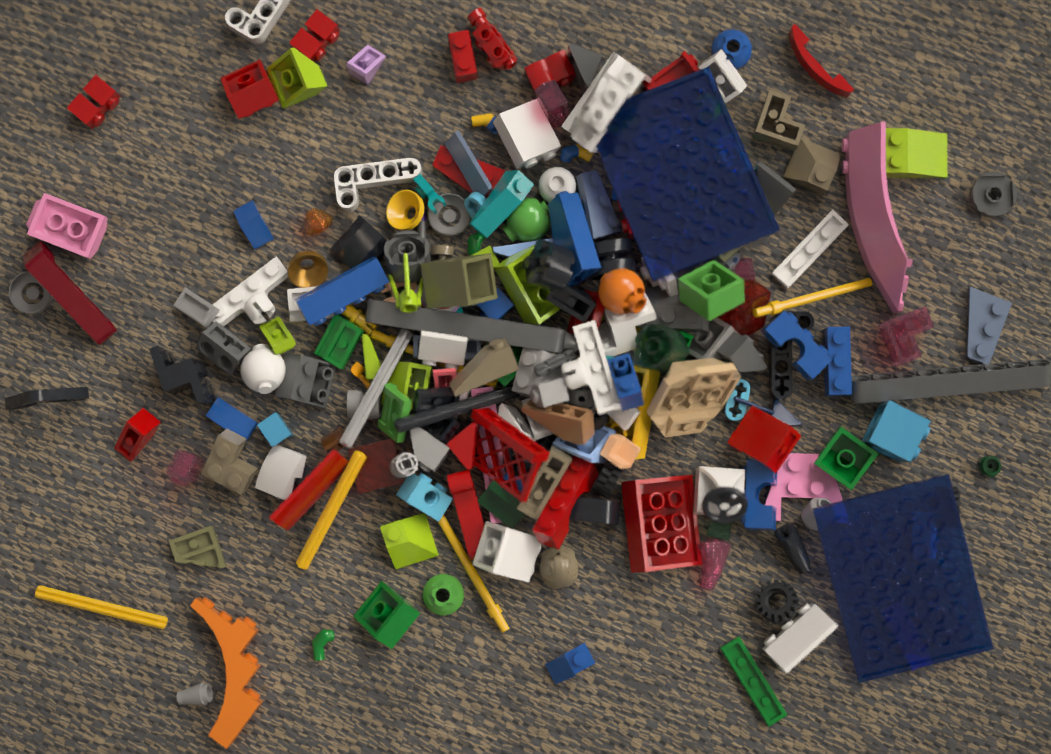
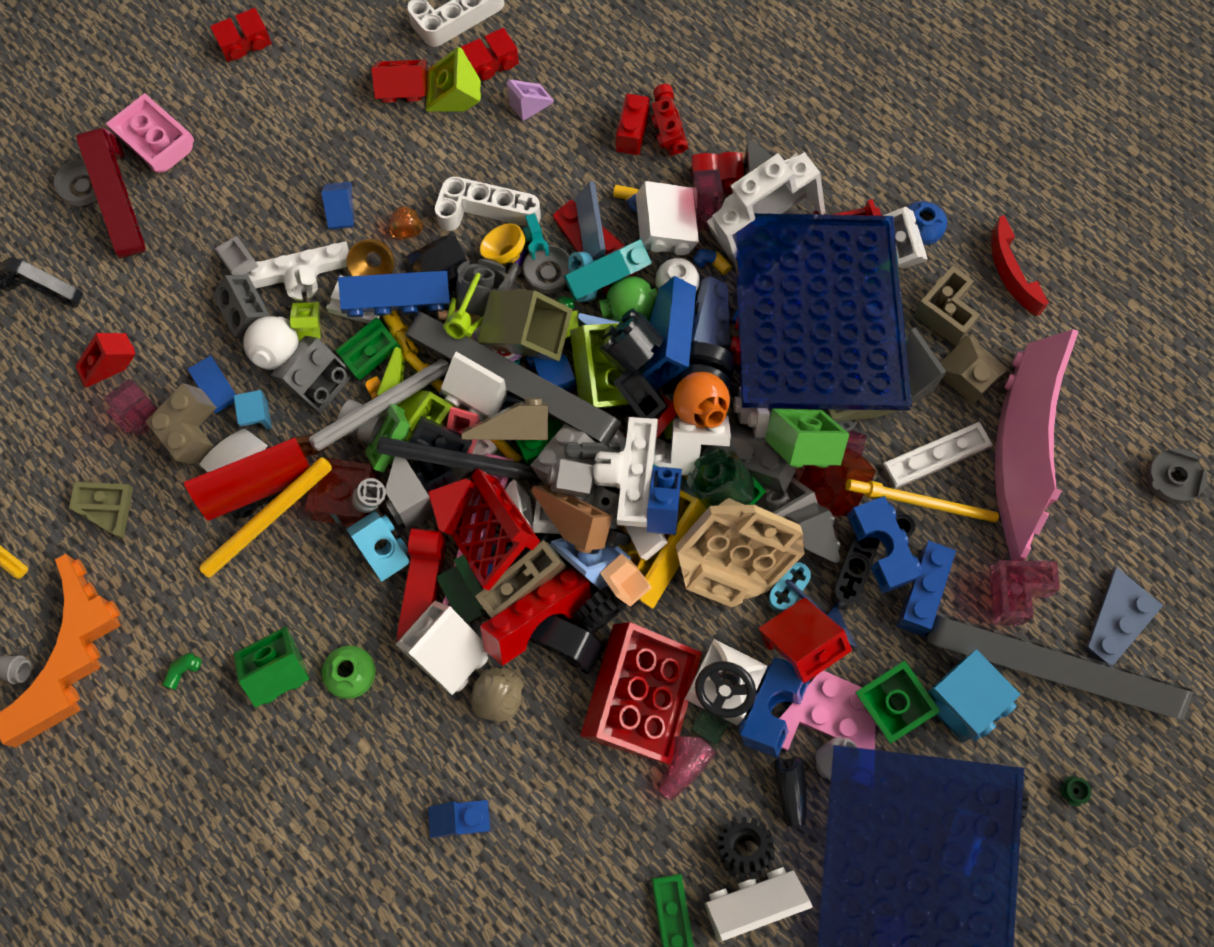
camera: 20 degrees right, 15 degrees down
(182, 375) = (182, 314): black bracket -> none
(409, 540) = (338, 591): lime slope -> none
(493, 609) = (397, 714): yellow bar -> none
(915, 154) = (1096, 397): lime slope -> none

